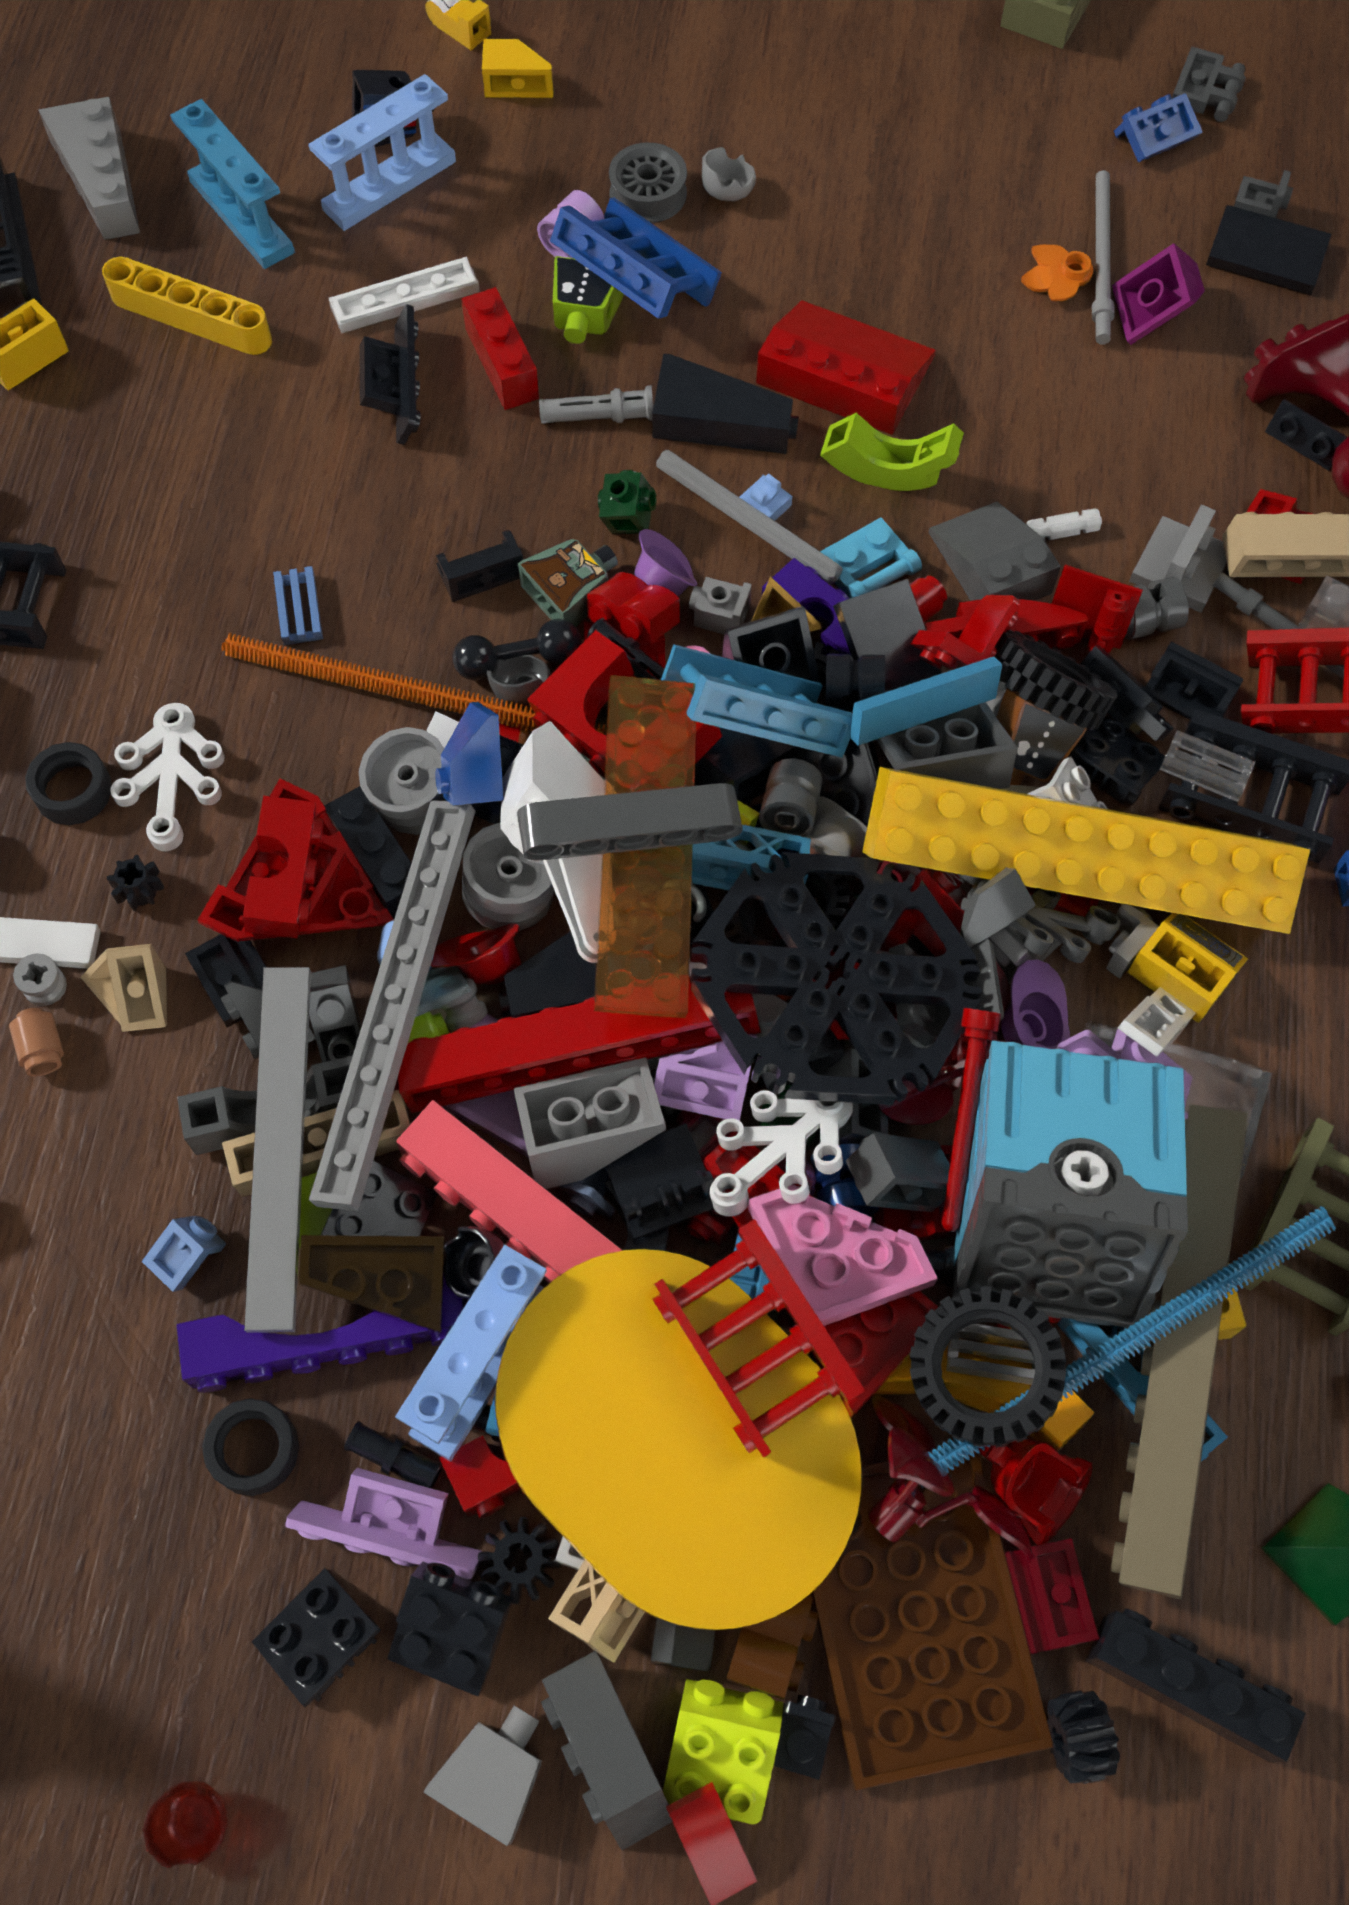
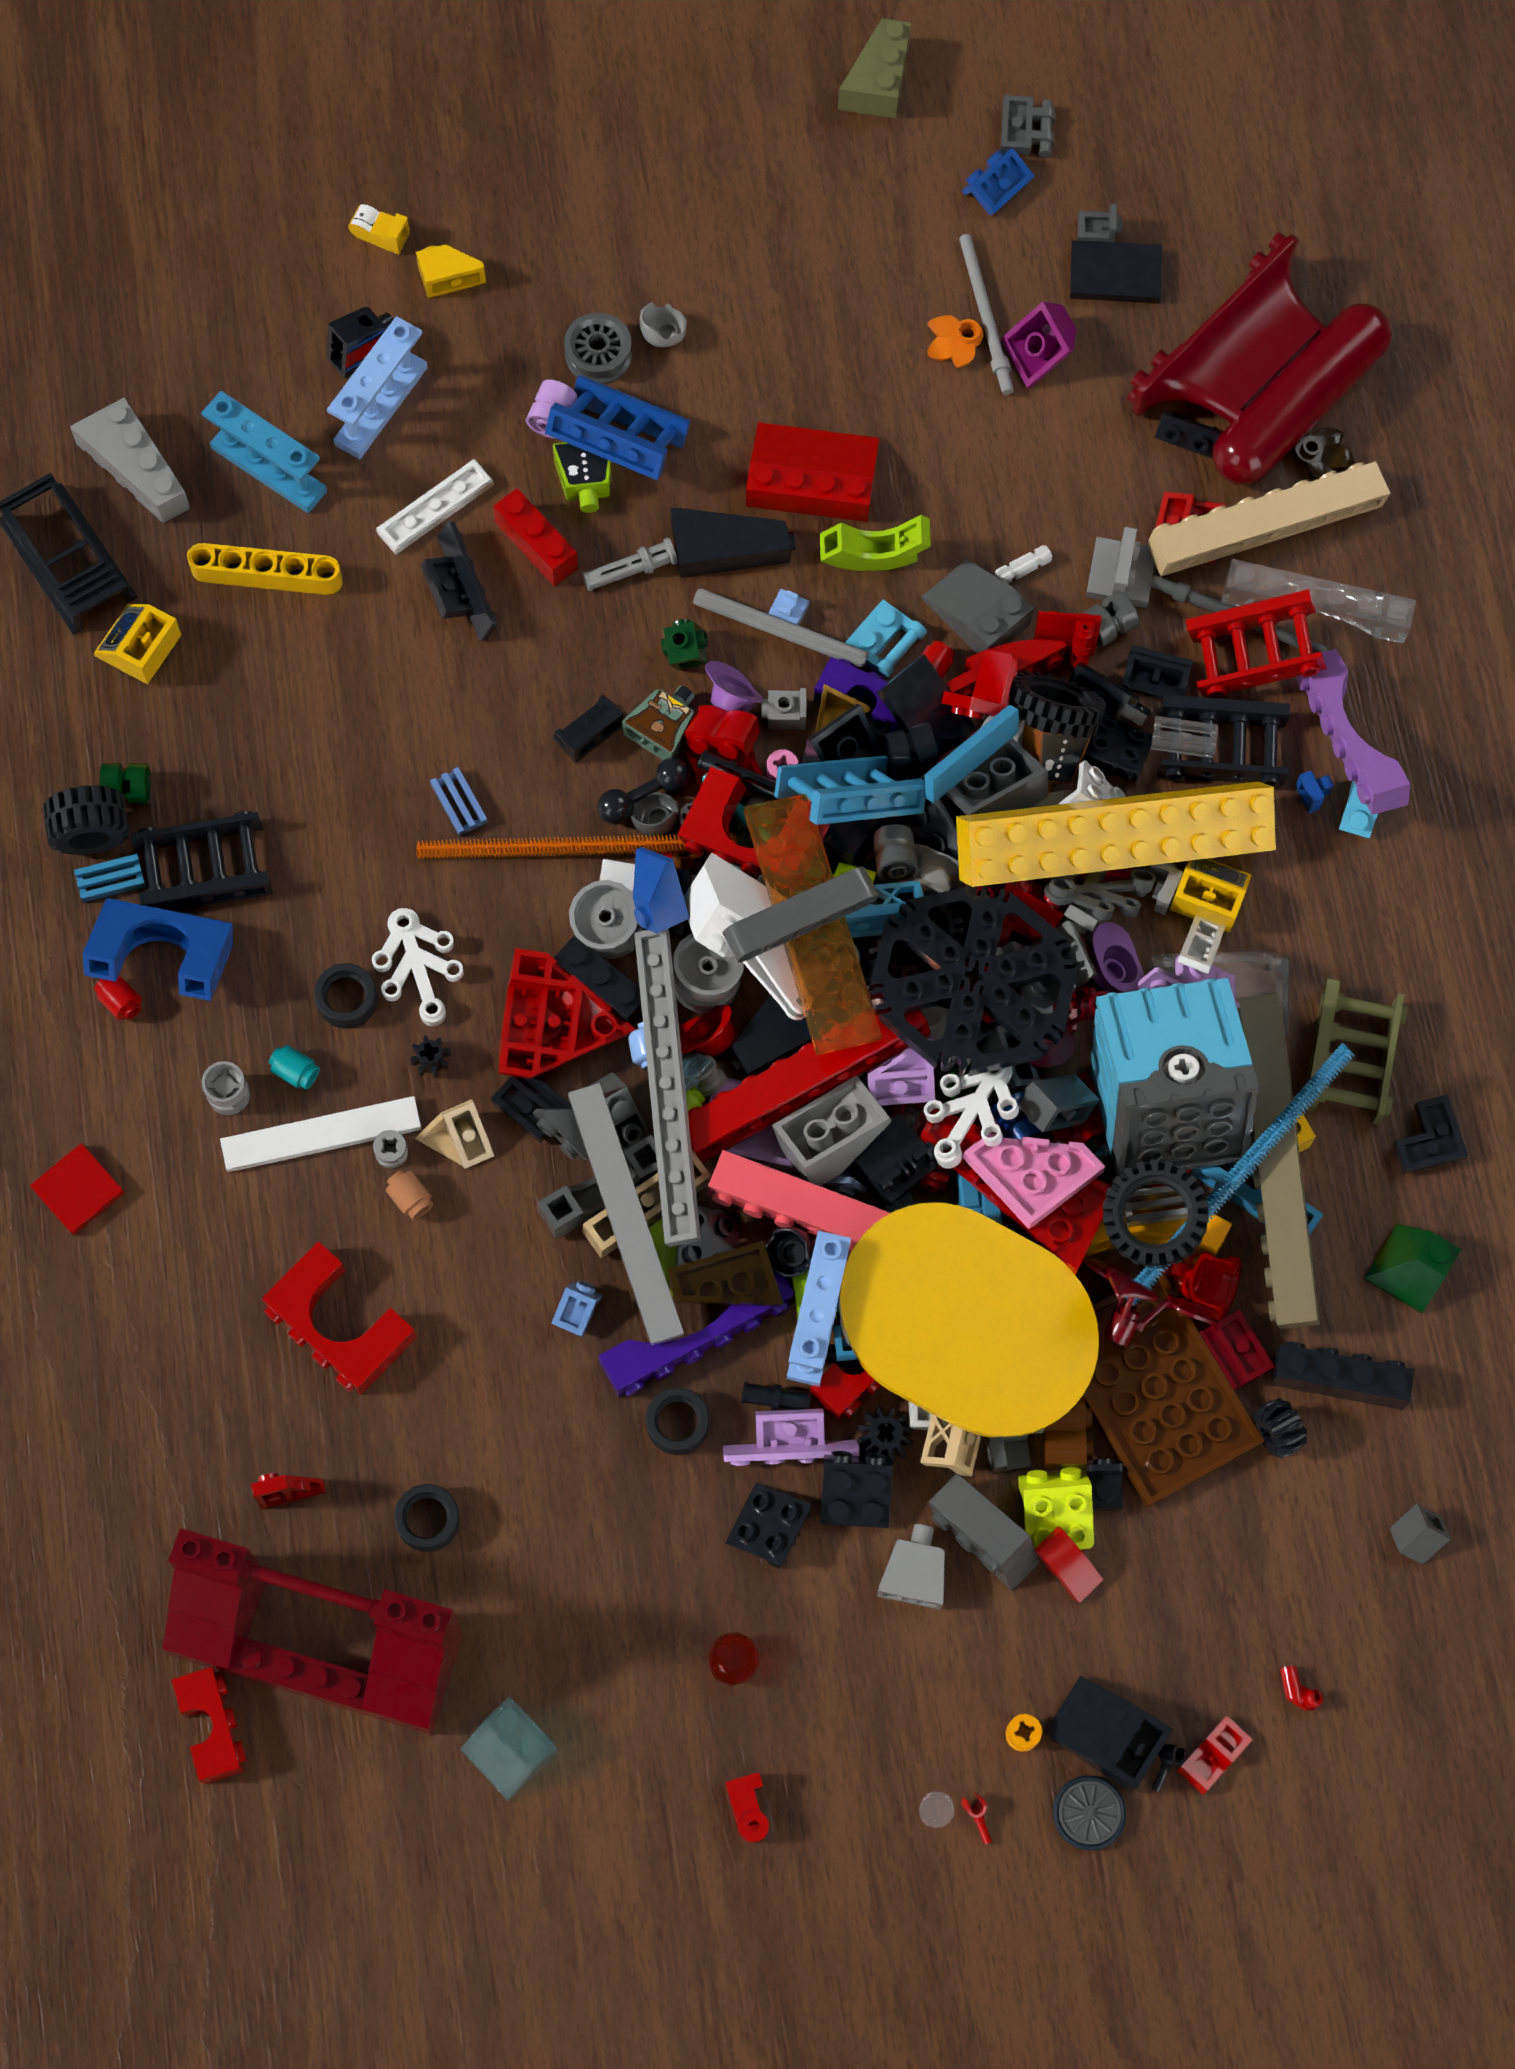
camera: 20 degrees left, 5 degrees up
(278, 903) = (544, 987): red arch -> none
(805, 1336) = (1034, 1228): red fence -> none
(979, 1029) = (1083, 989): red piece -> none
(994, 906) = (1067, 896): dark grey slope -> none

